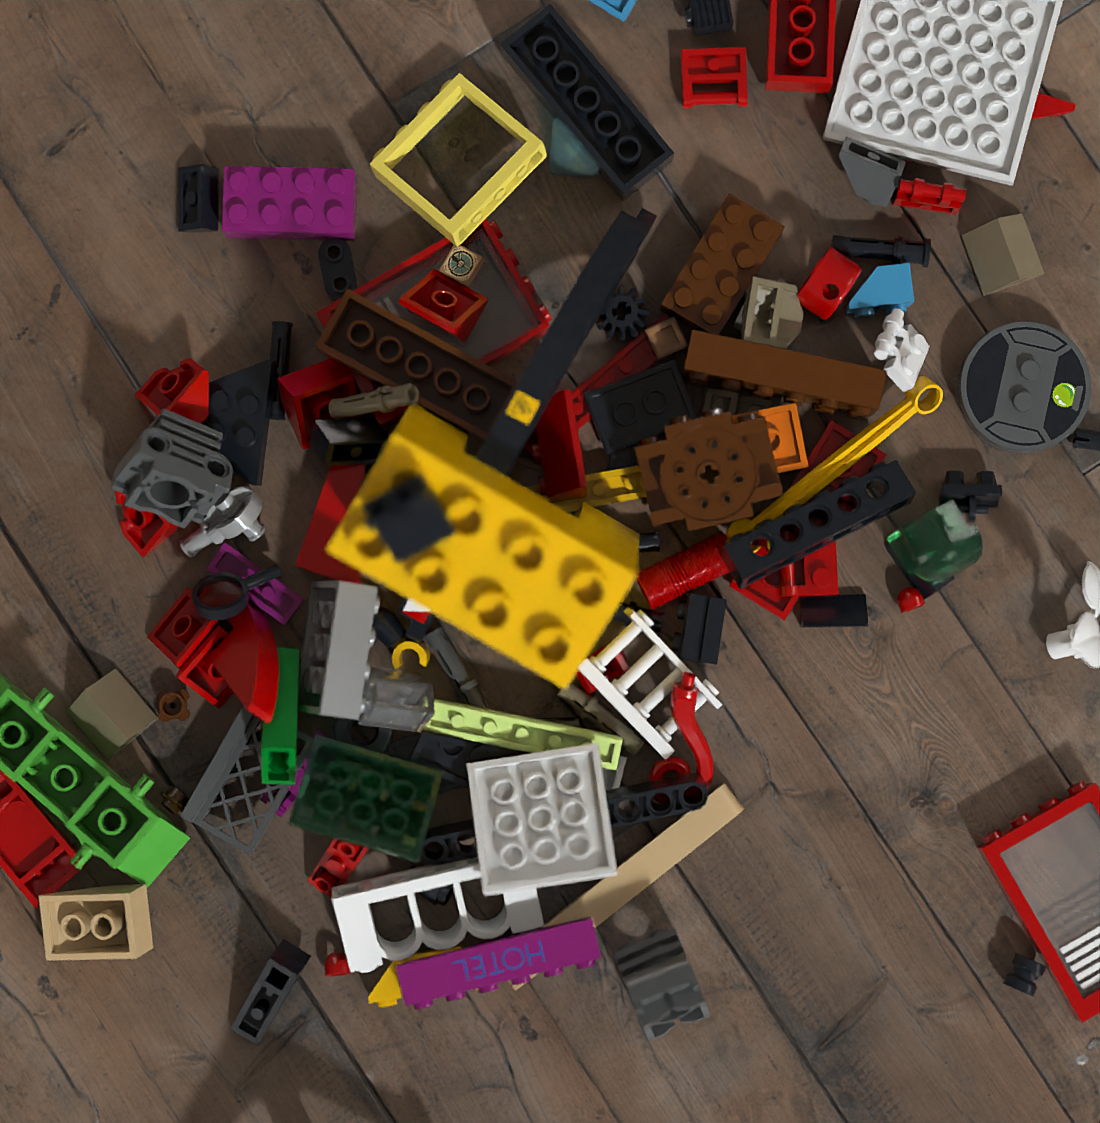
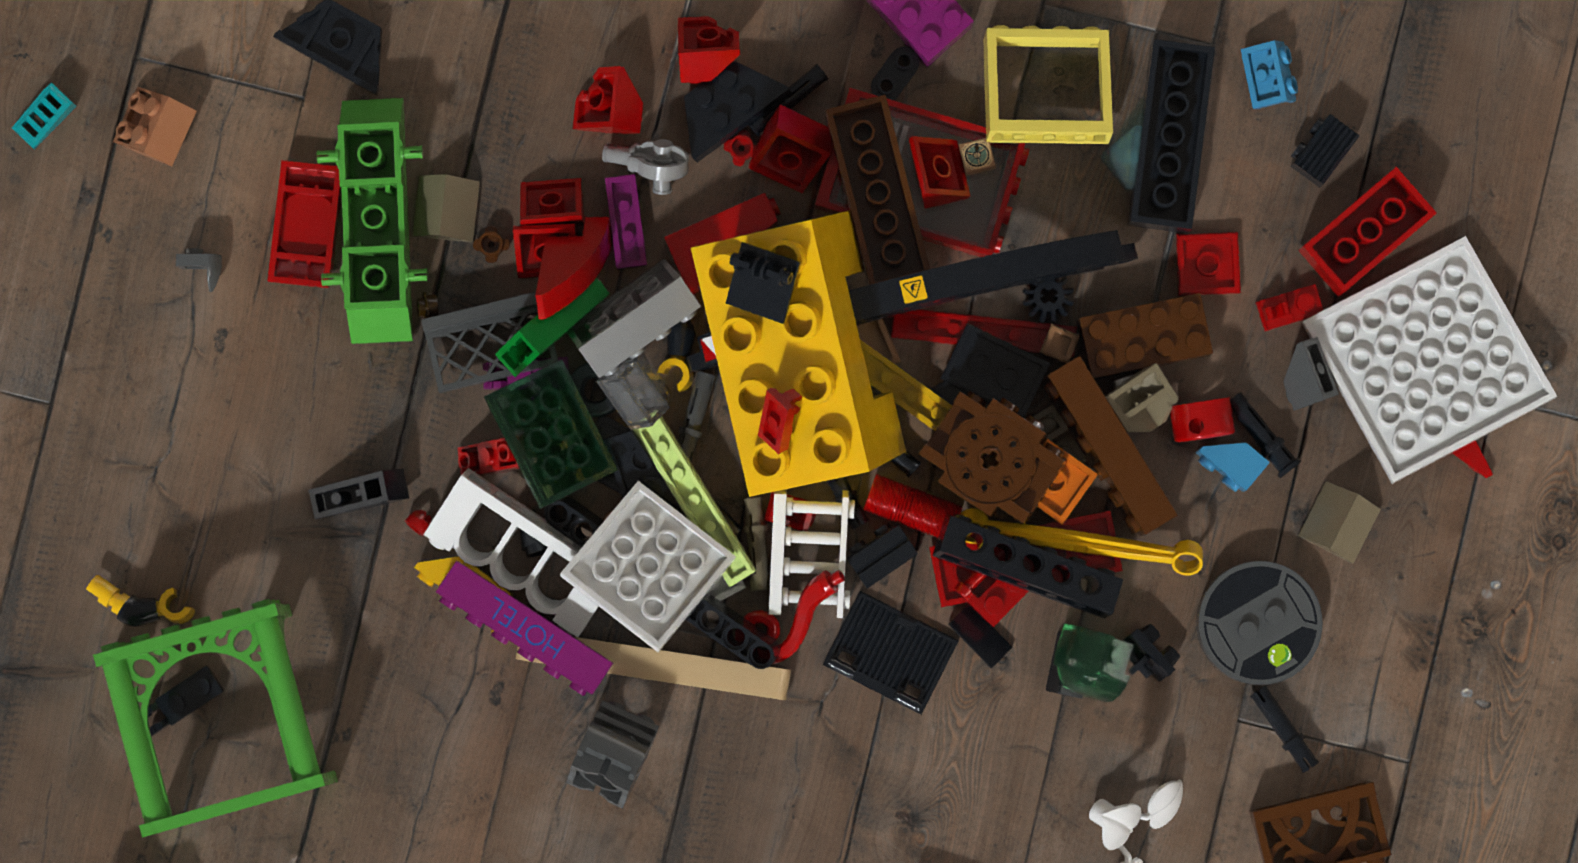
camera: 50 degrees right, 0 degrees up
(96, 923) = (296, 331): tan slope -> none
(174, 470) = (651, 94): dark grey piece -> none
(227, 594) = (601, 209): black piece -> none
(274, 446) = (732, 146): none -> red plate
(348, 441) = (782, 193): black brick -> none
(383, 399) = (832, 190): dark tan pin -> none
(527, 607) = (778, 418): none -> red plate
(560, 451) = (911, 343): red slope -> none
(710, 168) = (1208, 264): none -> red tile
(714, 66) = (1280, 200): red plate -> none
(781, 691) = (891, 651): none -> black window
(802, 137) = (1289, 307): none -> red plate
(902, 349) = (1204, 513): white plate -> none
(909, 599) = (1037, 680): red hinge -> none
(929, 196) = (1329, 433): red plate -> none

